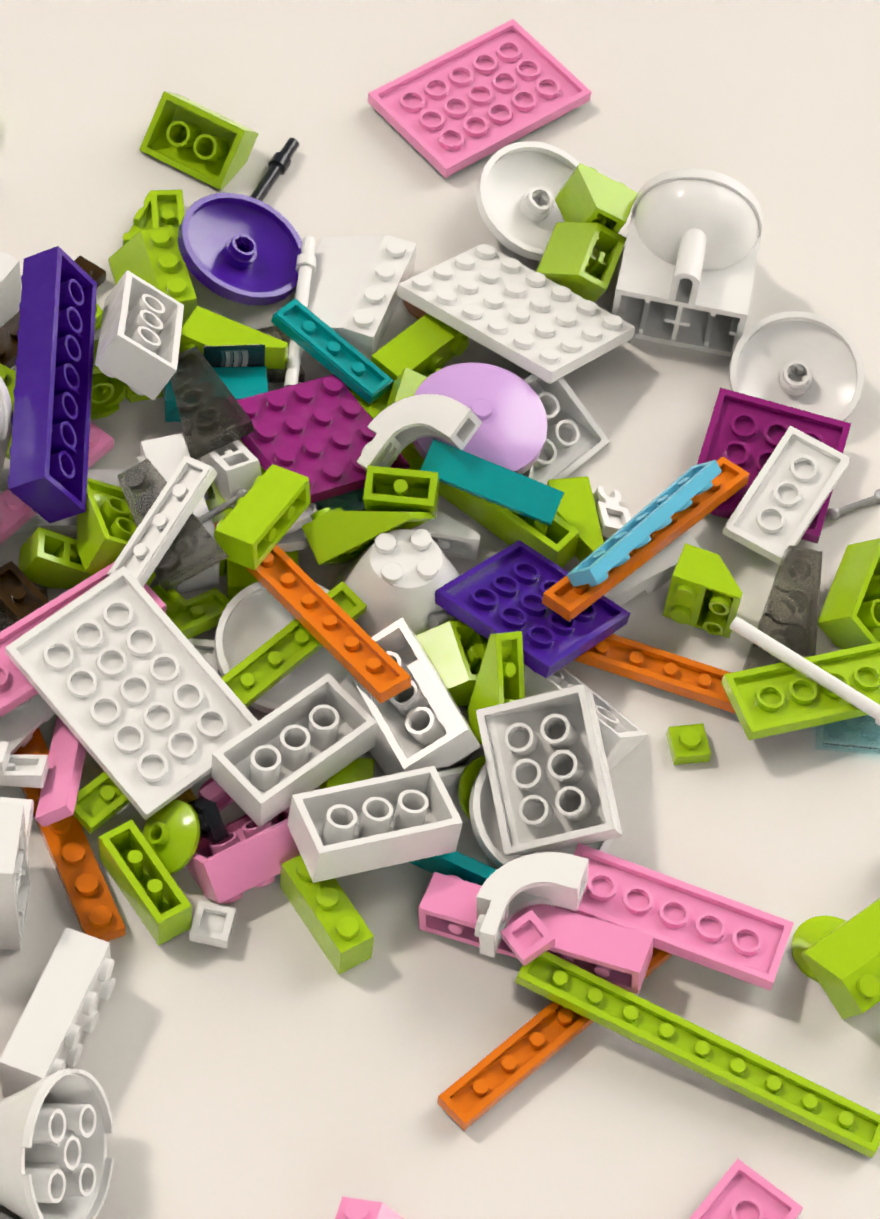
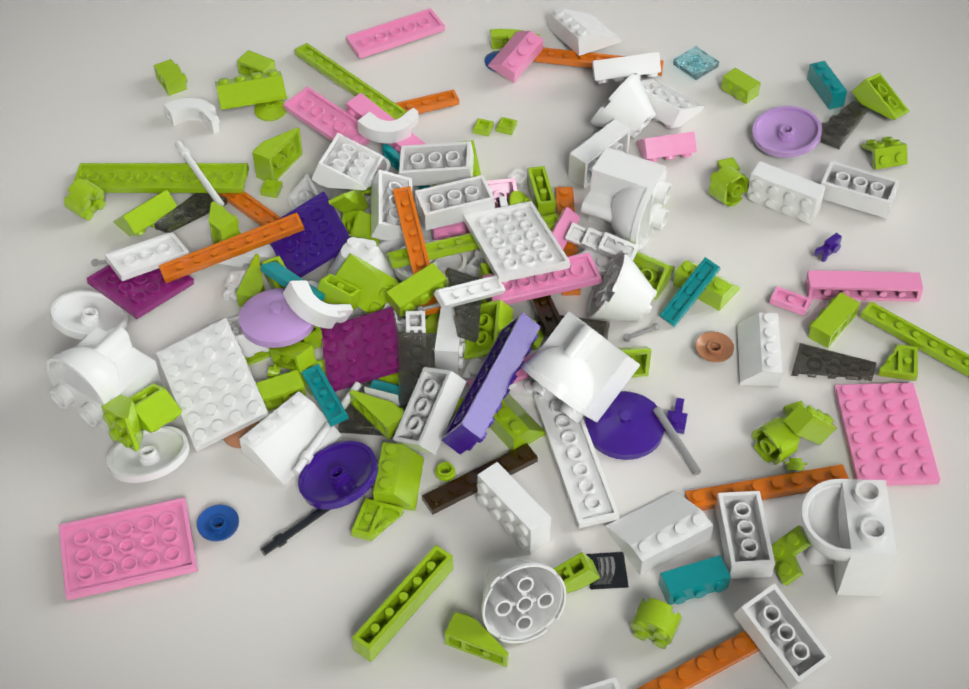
camera: 150 degrees left, 5 degrees down
(57, 119) = (402, 603): none -> lime brick
(197, 140) = (320, 567): lime slope -> none
(302, 1075) = (506, 126): none -> lime tile
(352, 1053) = (483, 127): none -> lime tile
(377, 153) = (217, 516): none -> blue dish
(528, 937) = (396, 112): bright pink plate -> none
(637, 530) = (233, 239): medium azure plate -> none
(718, 775) = (277, 154): none -> lime slope

